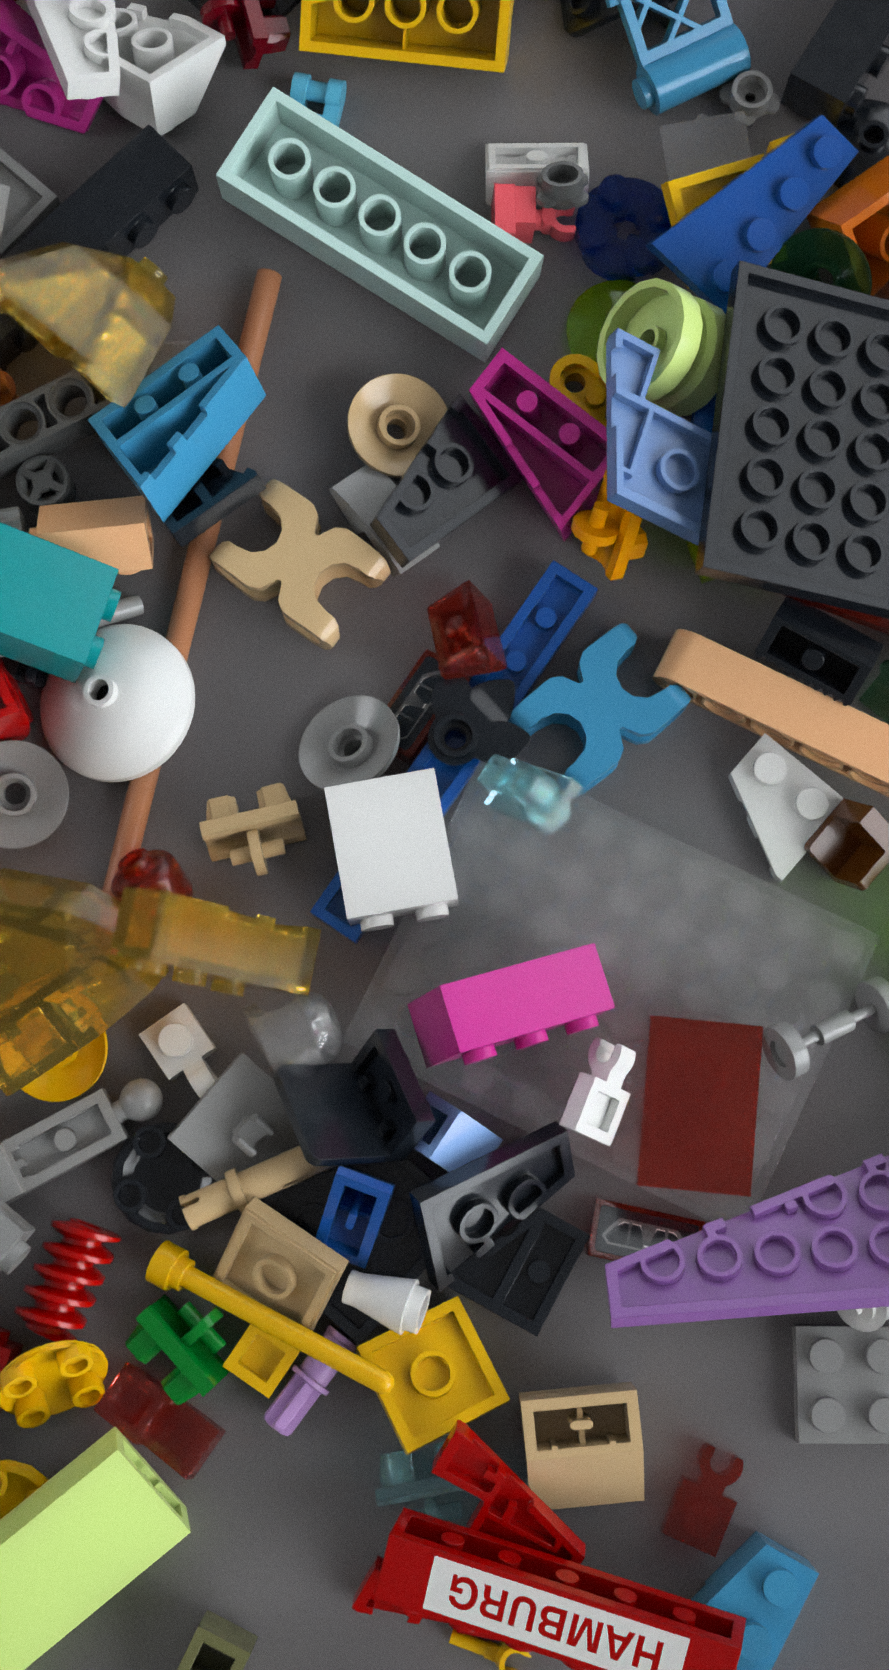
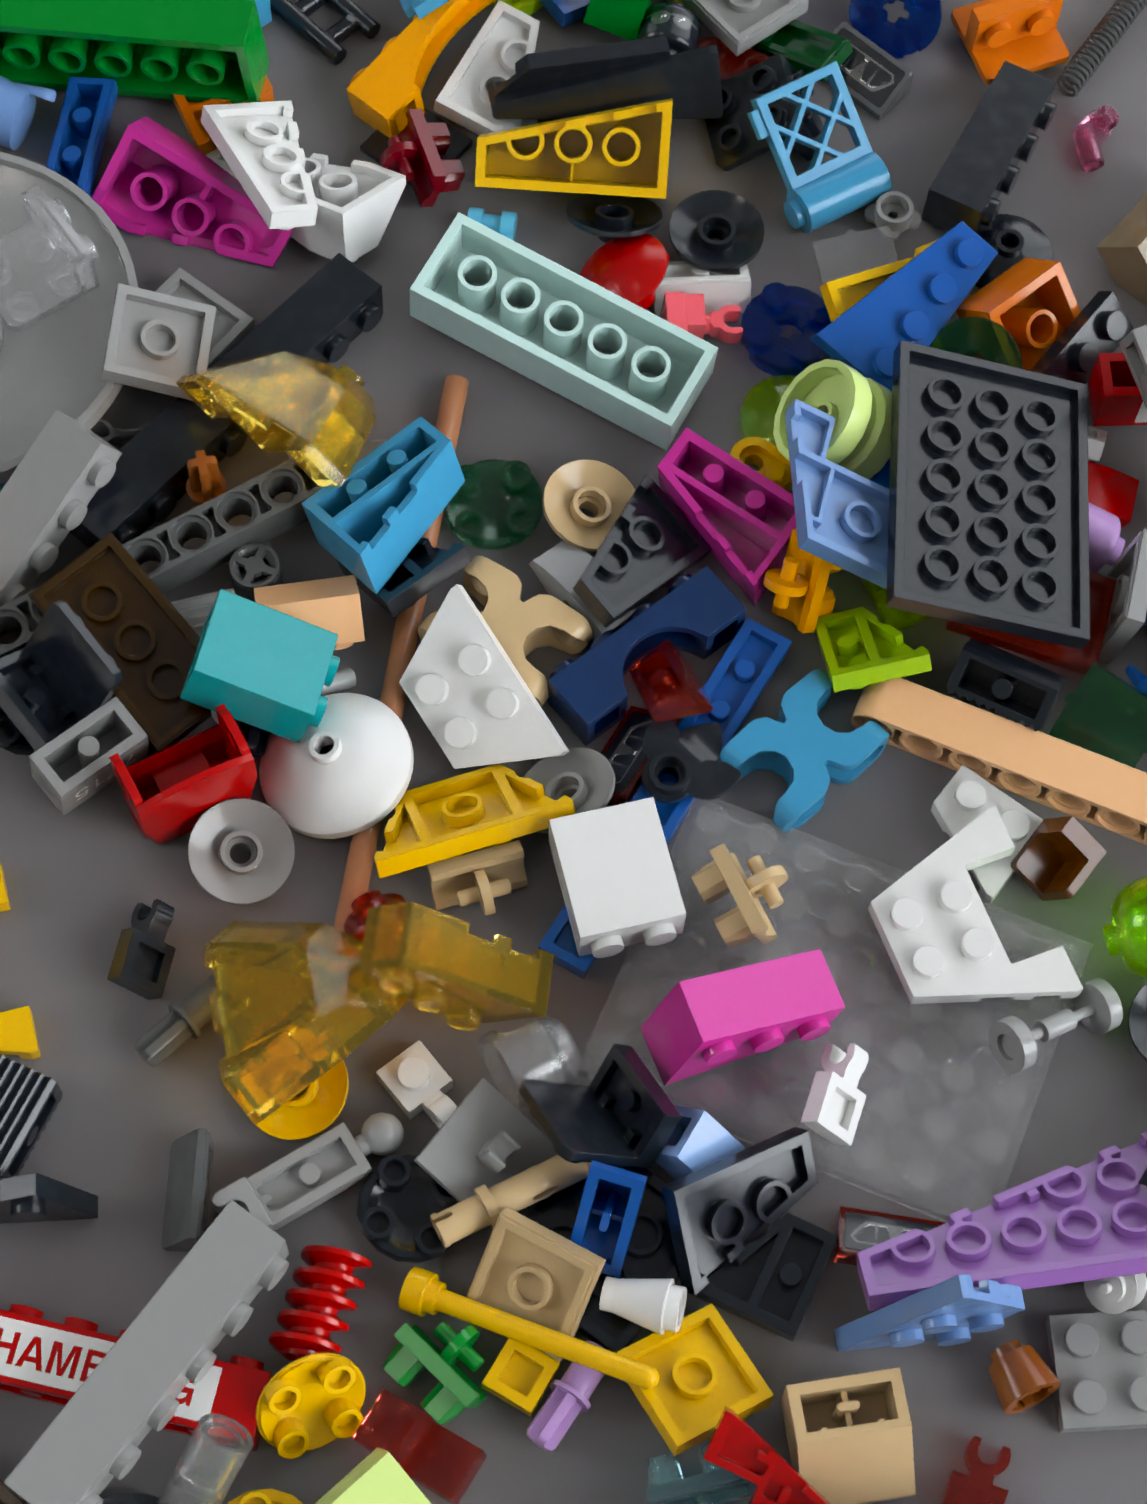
camera: 10 degrees left, 15 degrees down
(241, 771) = (464, 816): none -> yellow wing
(261, 633) = (474, 692): none -> white wing
(299, 418) = (495, 504): none -> clear green dish
(447, 90) = (614, 215): none -> black dish
(457, 154) = (629, 268): none -> red dish
(496, 556) = (694, 615): none -> dark blue arch
(510, 852) = (727, 876): none -> tan hips
(528, 793) = (744, 818): clear light blue hips -> none
(557, 91) = (717, 216): none -> black dish
(562, 186) = (728, 292): dark grey plate -> none
(673, 605) = (865, 651): none -> lime wing
(679, 1343) = (937, 1313): none -> medium blue wing
(699, 1106) = (934, 1104): clear red tile -> none
(726, 922) = (945, 937): none -> white wing
(760, 1389) = (1020, 1377): none -> dark orange hat

